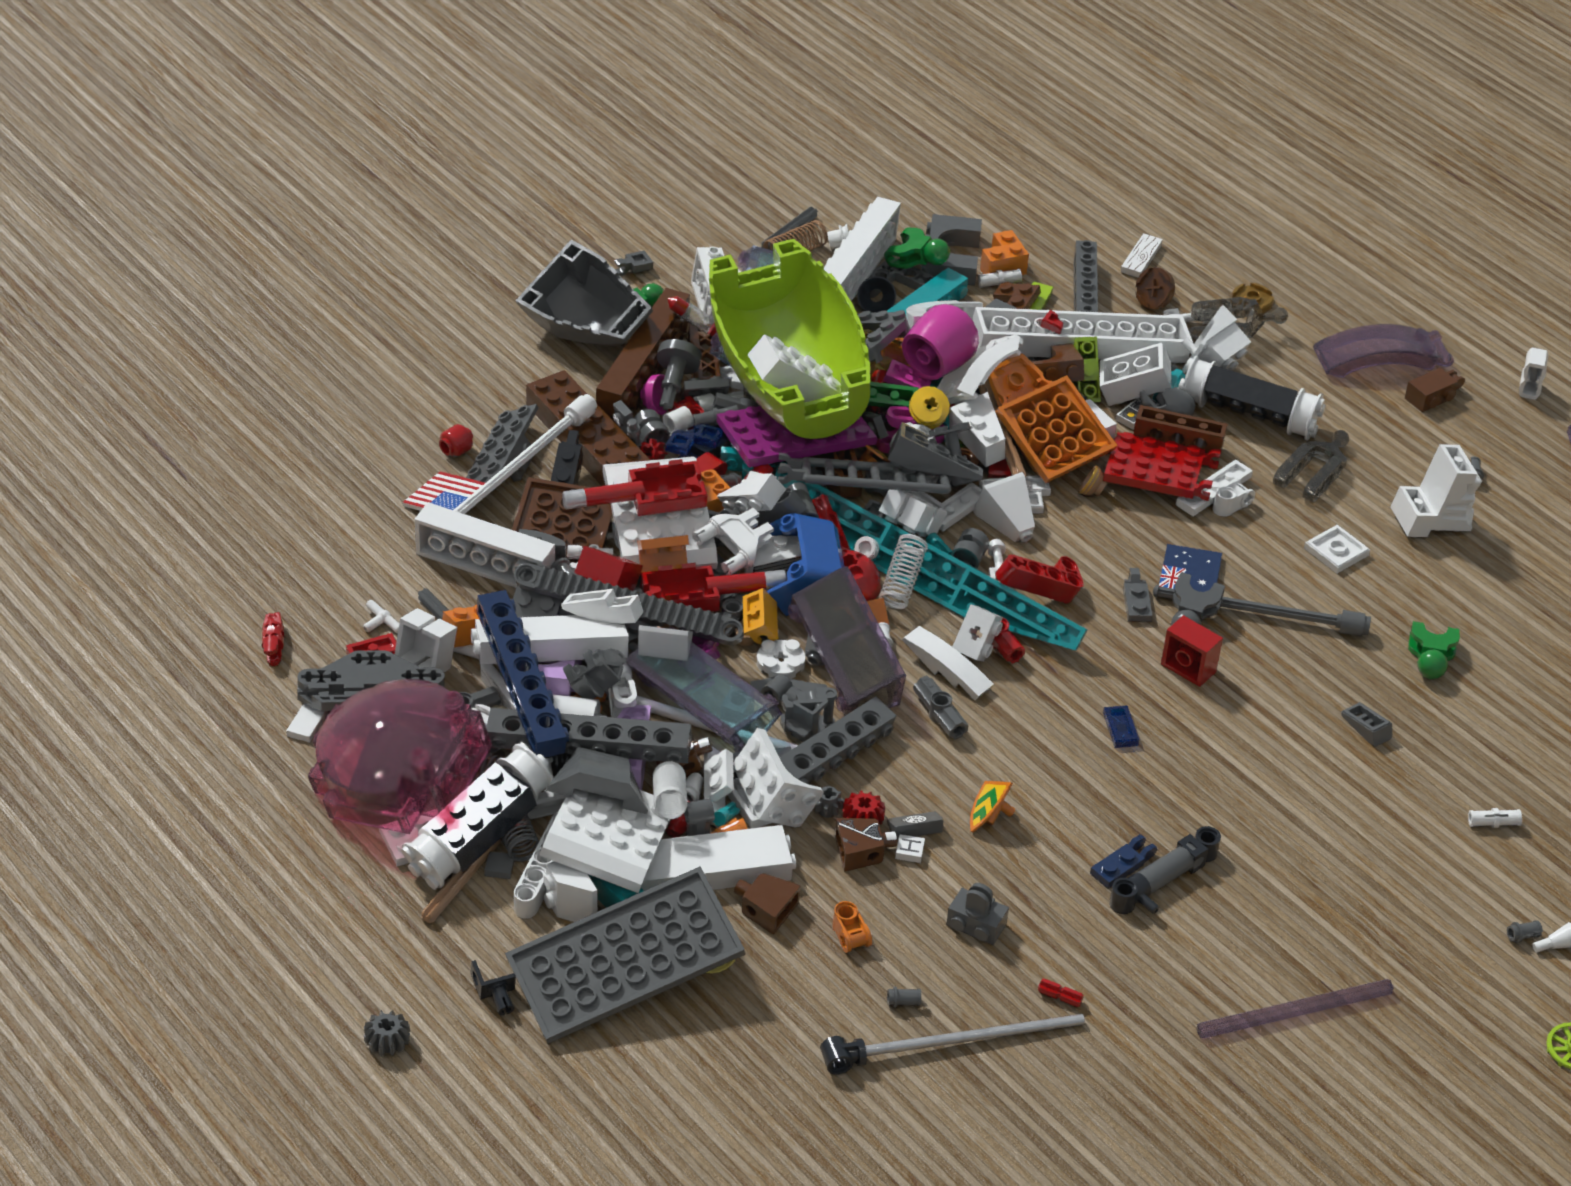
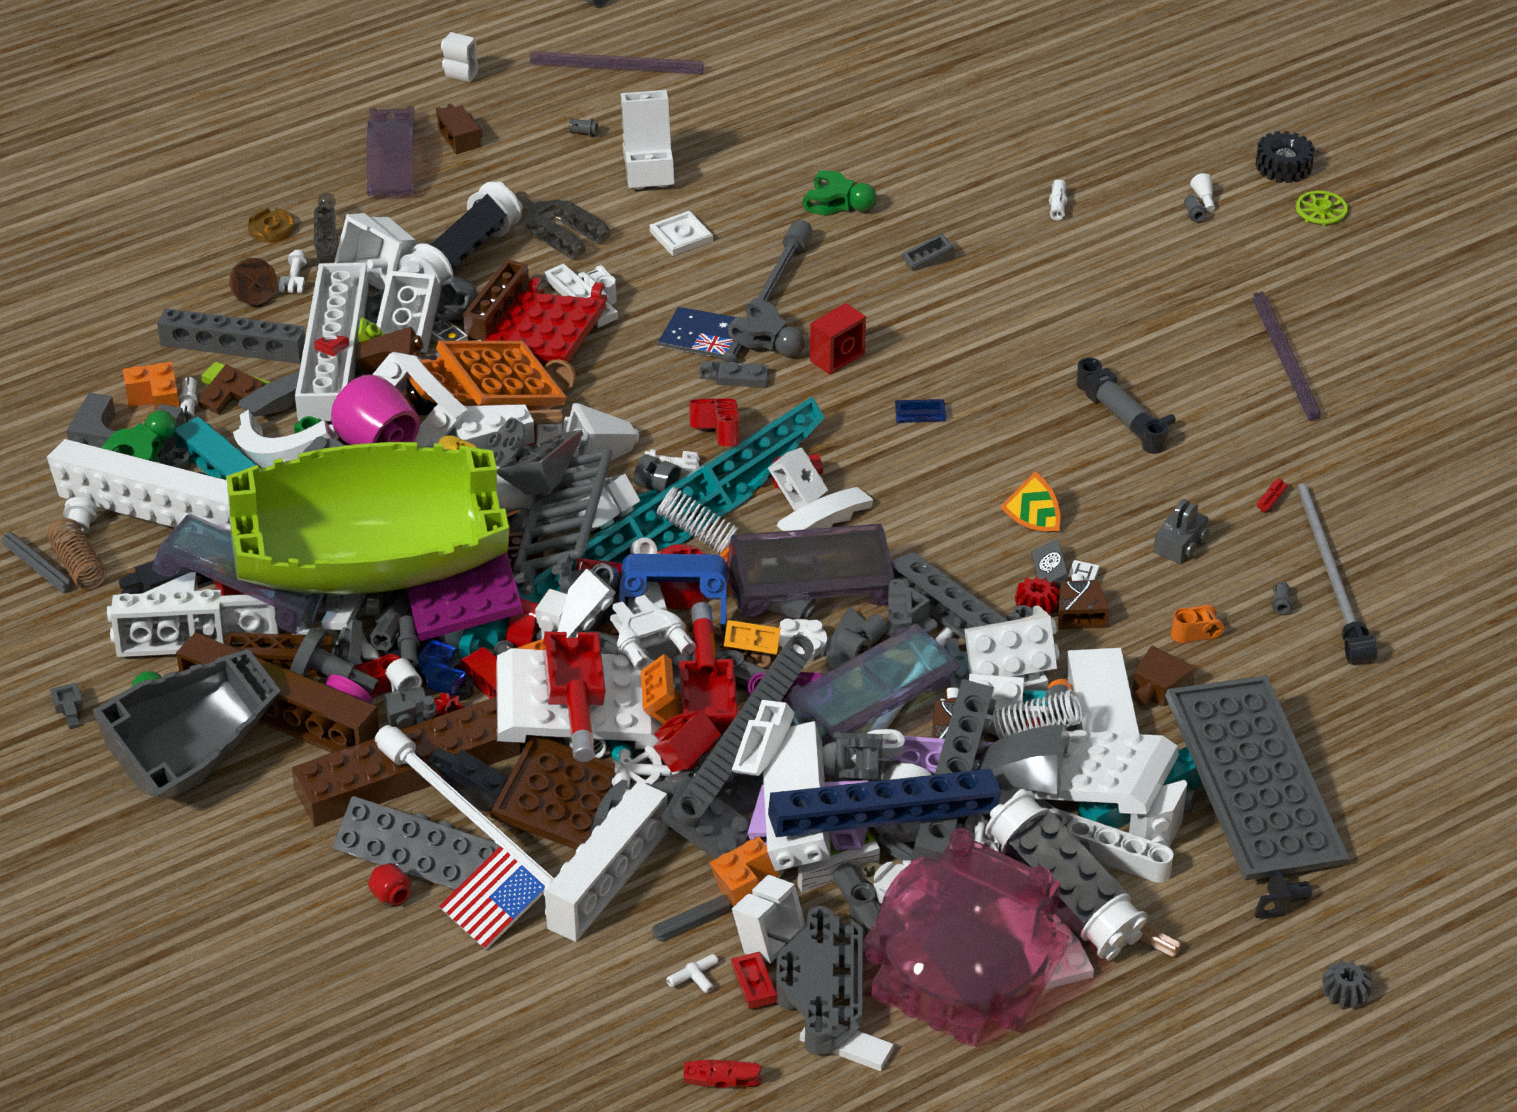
camera: 80 degrees left, 0 degrees up
(664, 642) = (820, 691): white slope -> none
(693, 315) = (238, 631): clear piece -> none
(787, 367) = (431, 524): white brick -> none
(940, 707) = (897, 523): dark grey piece -> none
(1123, 861) = (1104, 434): dark blue hinge -> none
(1141, 255) = (173, 291): white tile -> none

